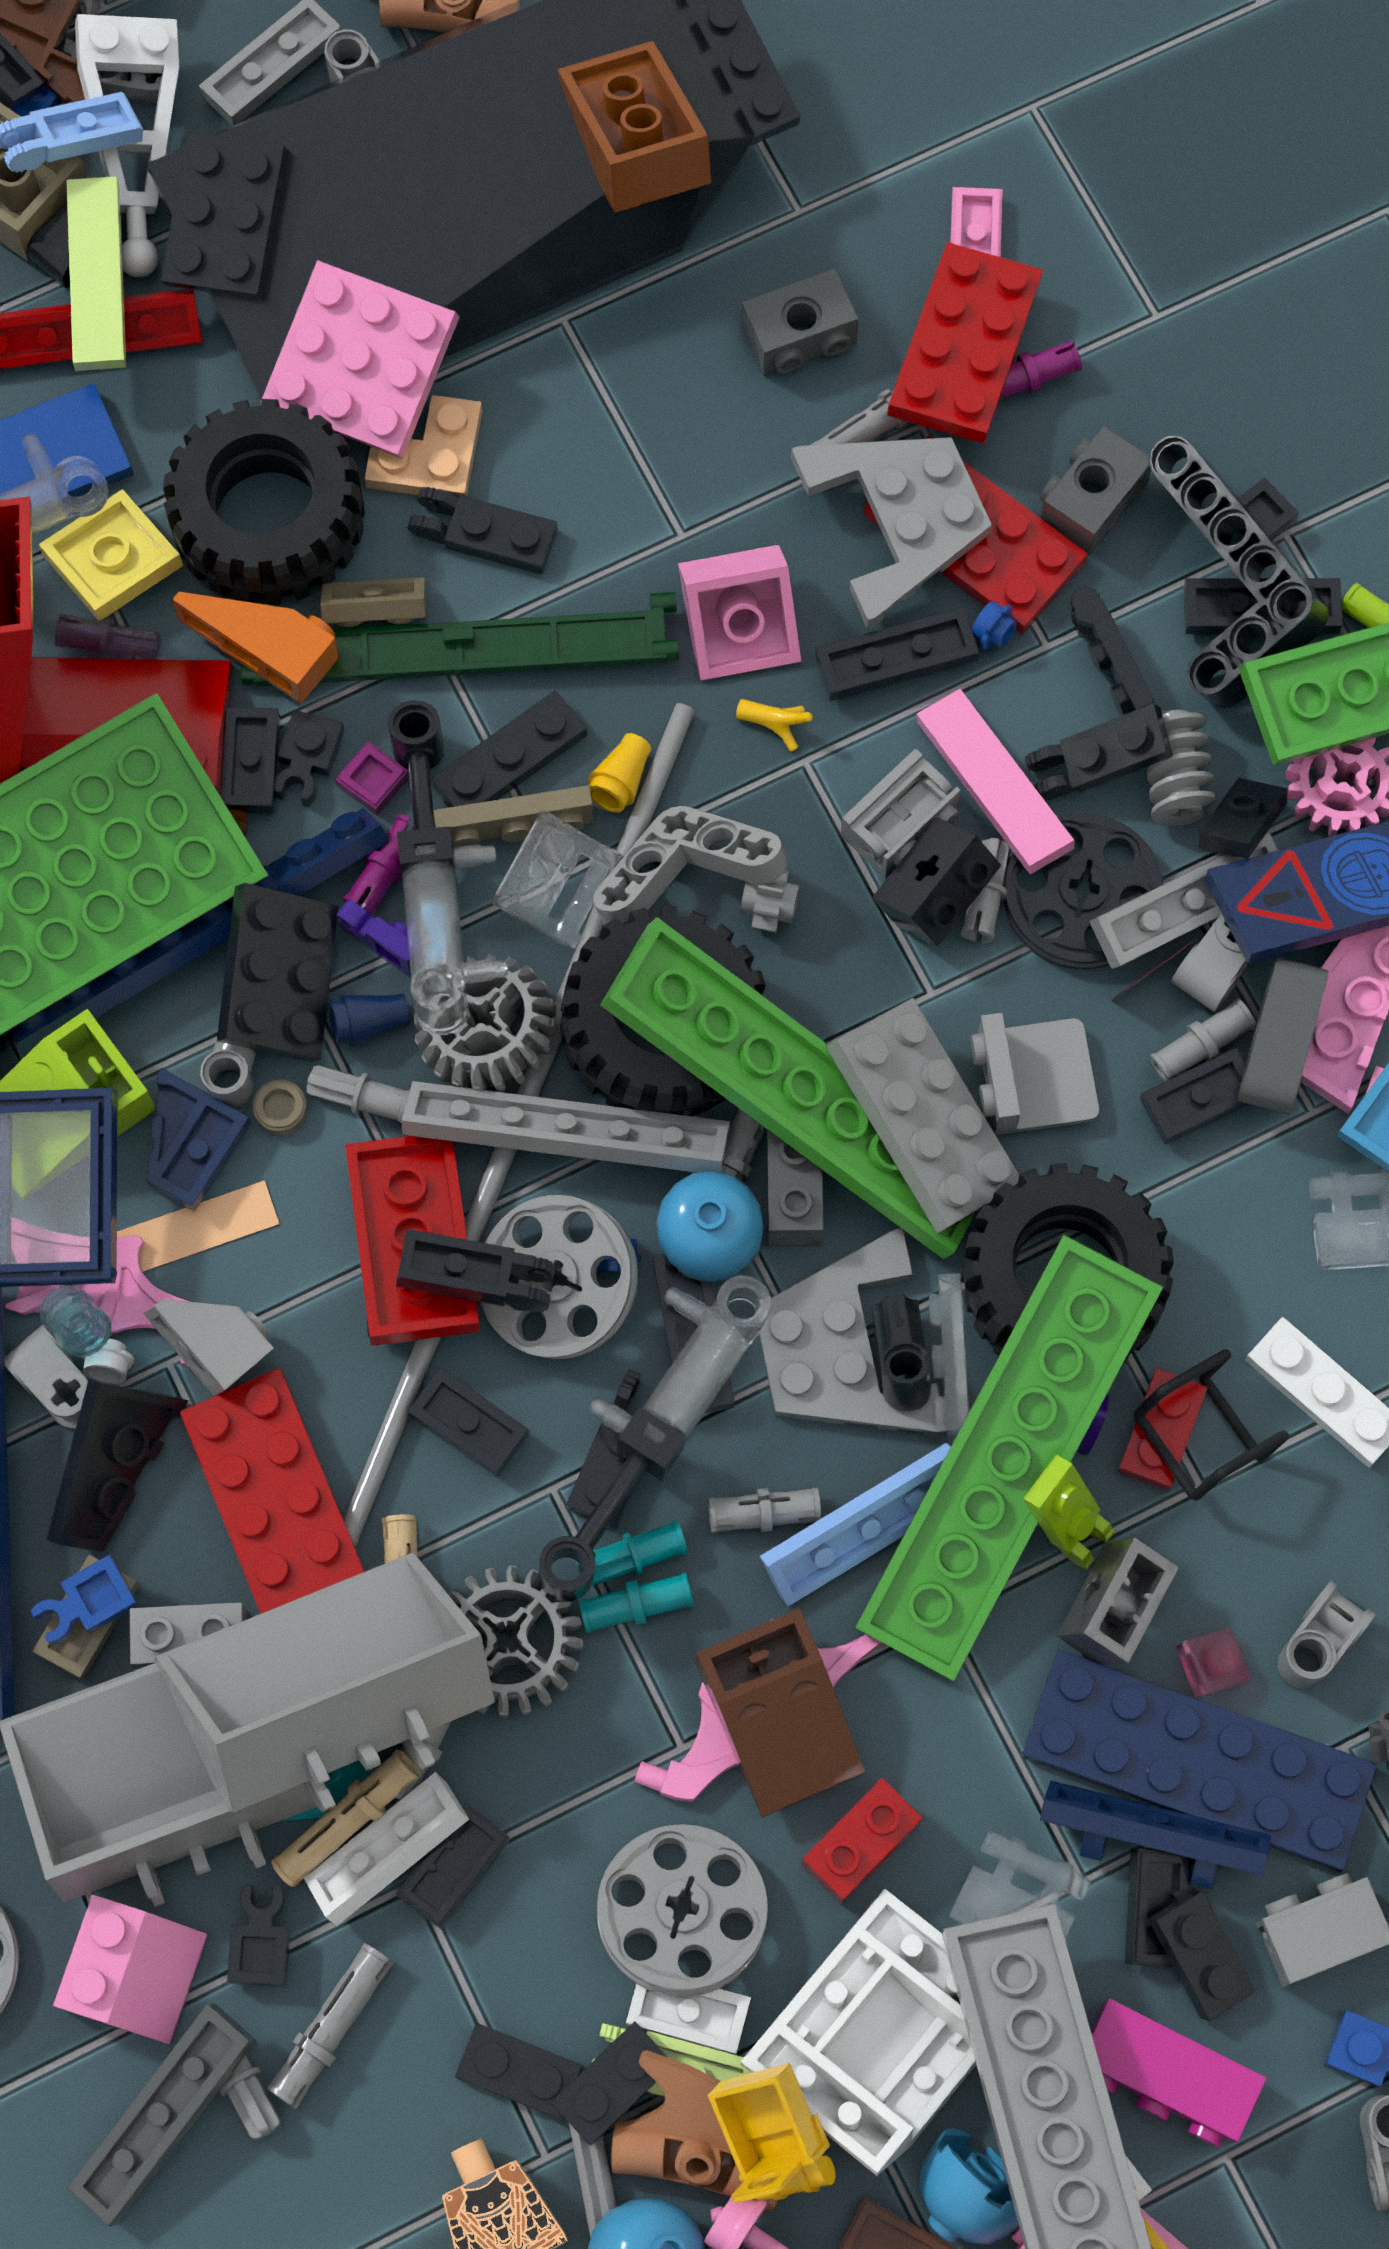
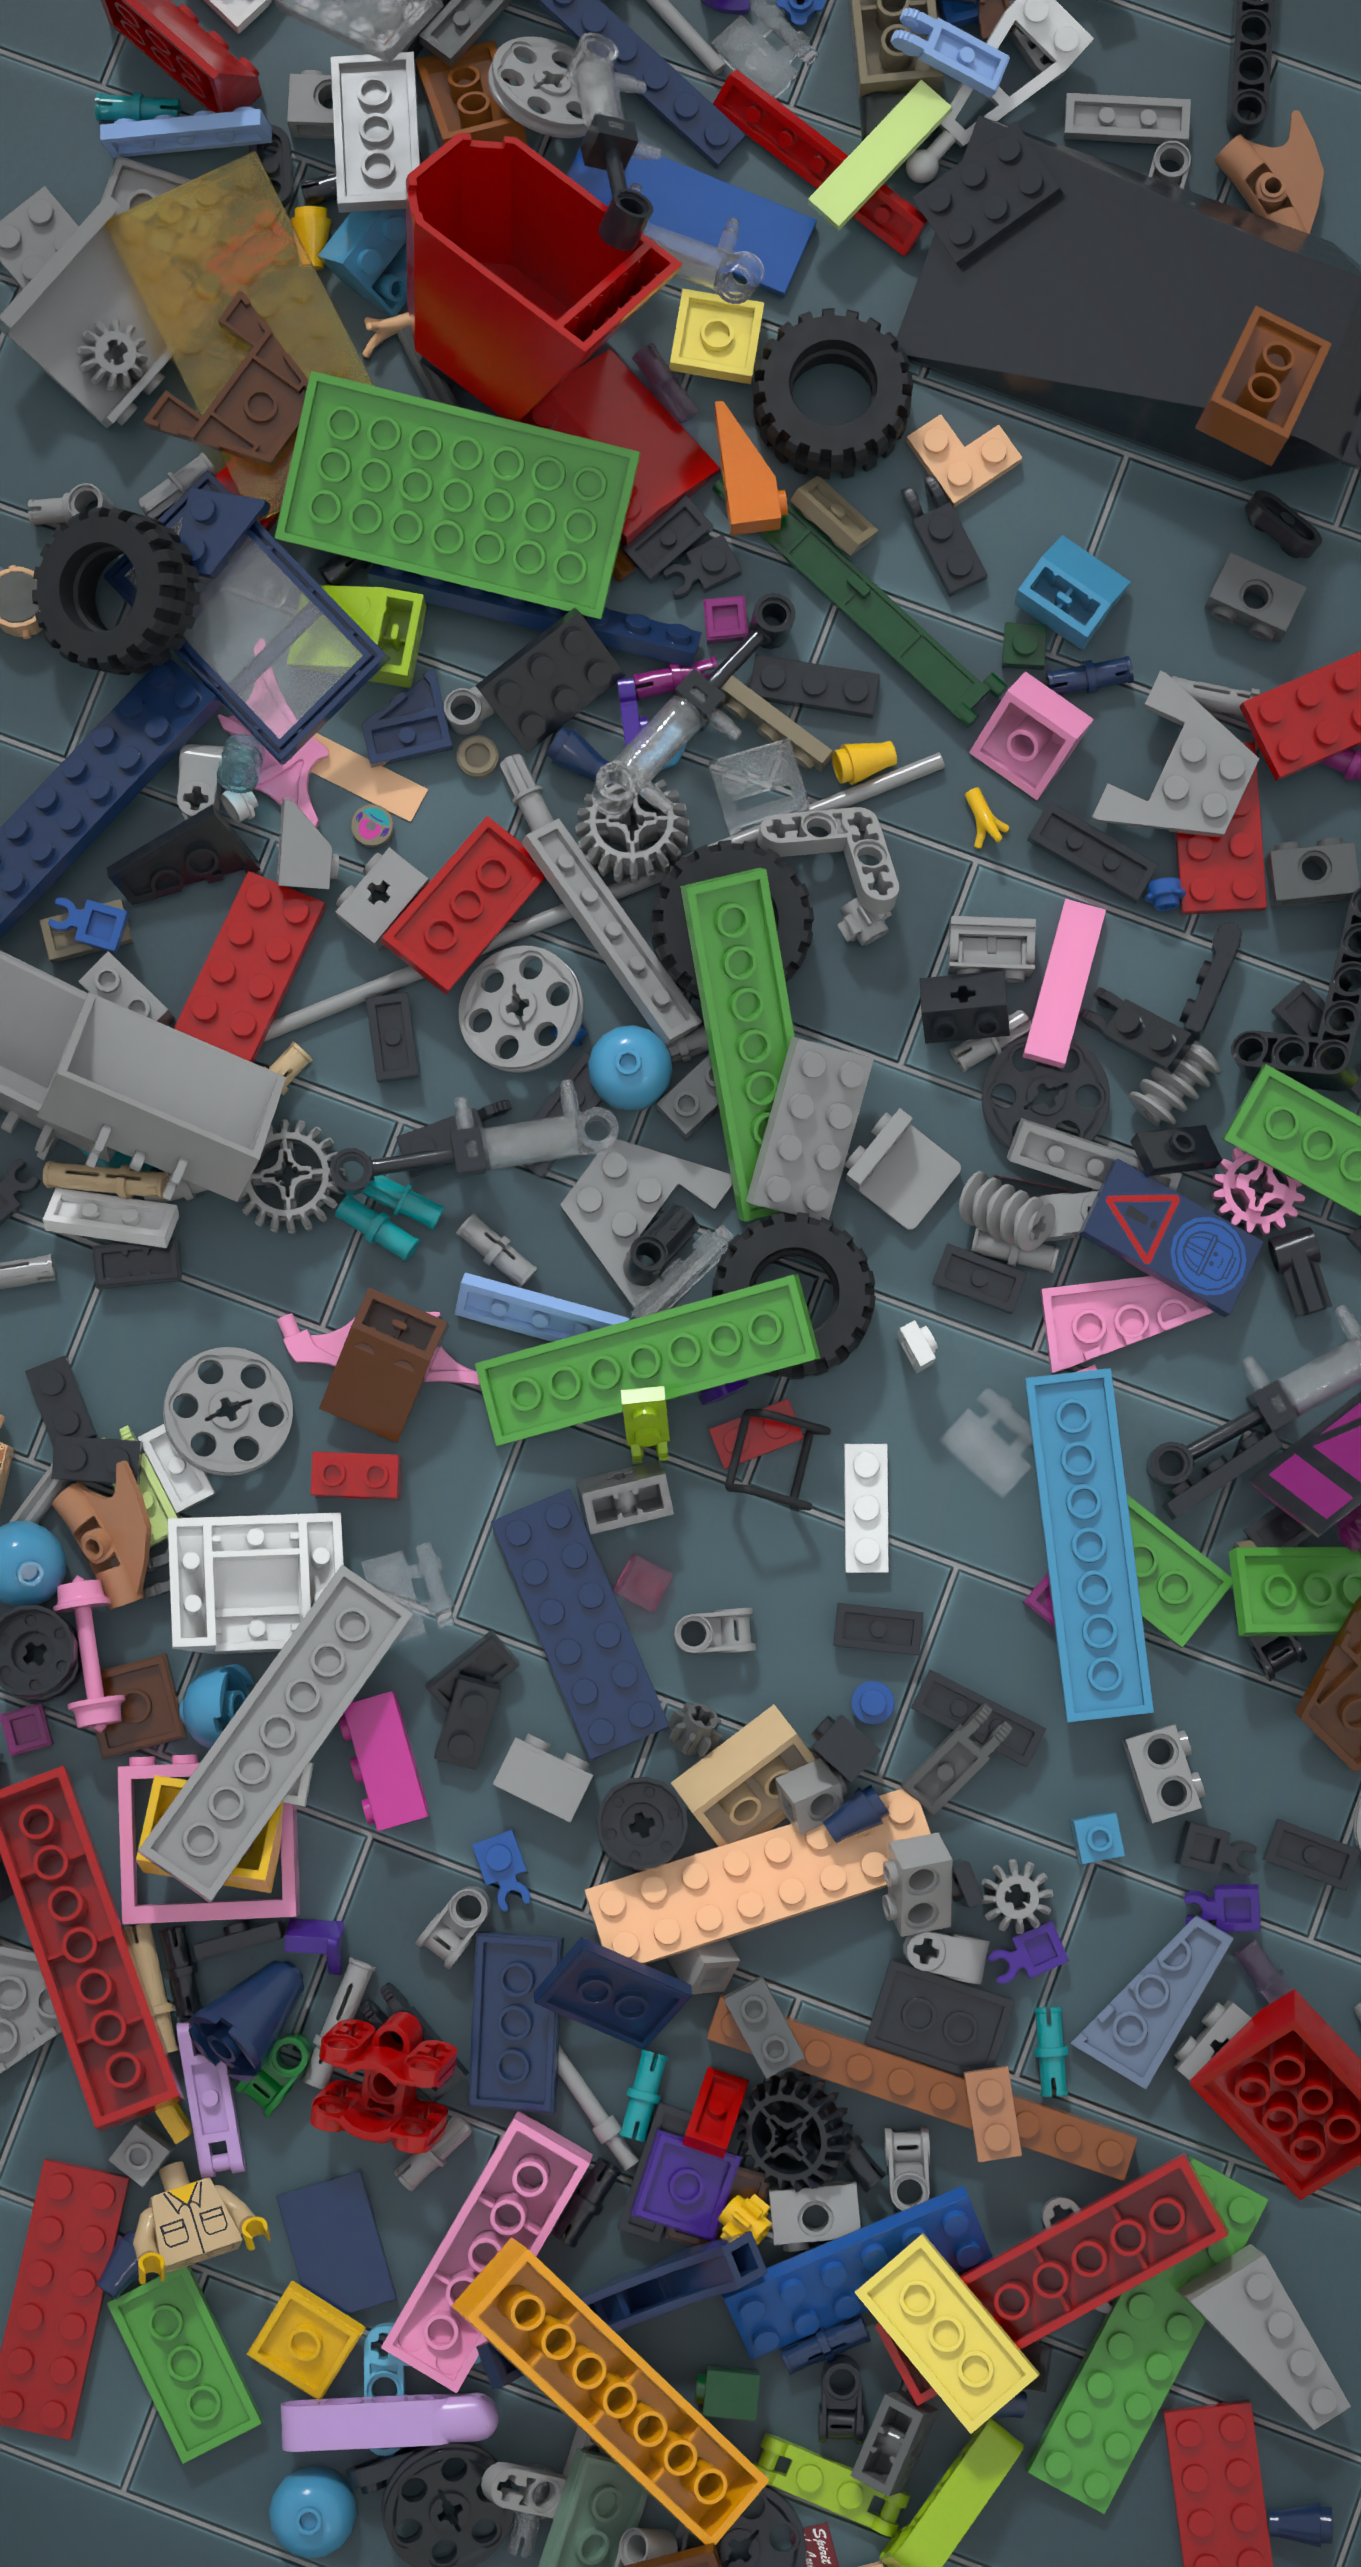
camera: 50 degrees right, 10 degrees up
(250, 1260) = (372, 826): none -> tile
(344, 1337) = (382, 872): none -> light grey brick
(362, 357) = (974, 363): bright pink plate -> none
(473, 1271) = (472, 957): black hinge -> none
(645, 467) = (1071, 592): none -> dark azure slope
(650, 549) = (1024, 646): none -> dark green plate
(734, 516) = (1090, 676): none -> dark blue pin
(772, 2135) = (140, 1571): yellow piece -> none
(773, 243) = (1283, 524): none -> black plate
(1155, 1828) = (514, 1632): dark blue hinge -> none
(1165, 1016) = (1006, 1212): none -> light grey piece
(1219, 1201) = (918, 1345): none -> white plate
(1283, 1035) = (1055, 1293): dark grey beam -> none

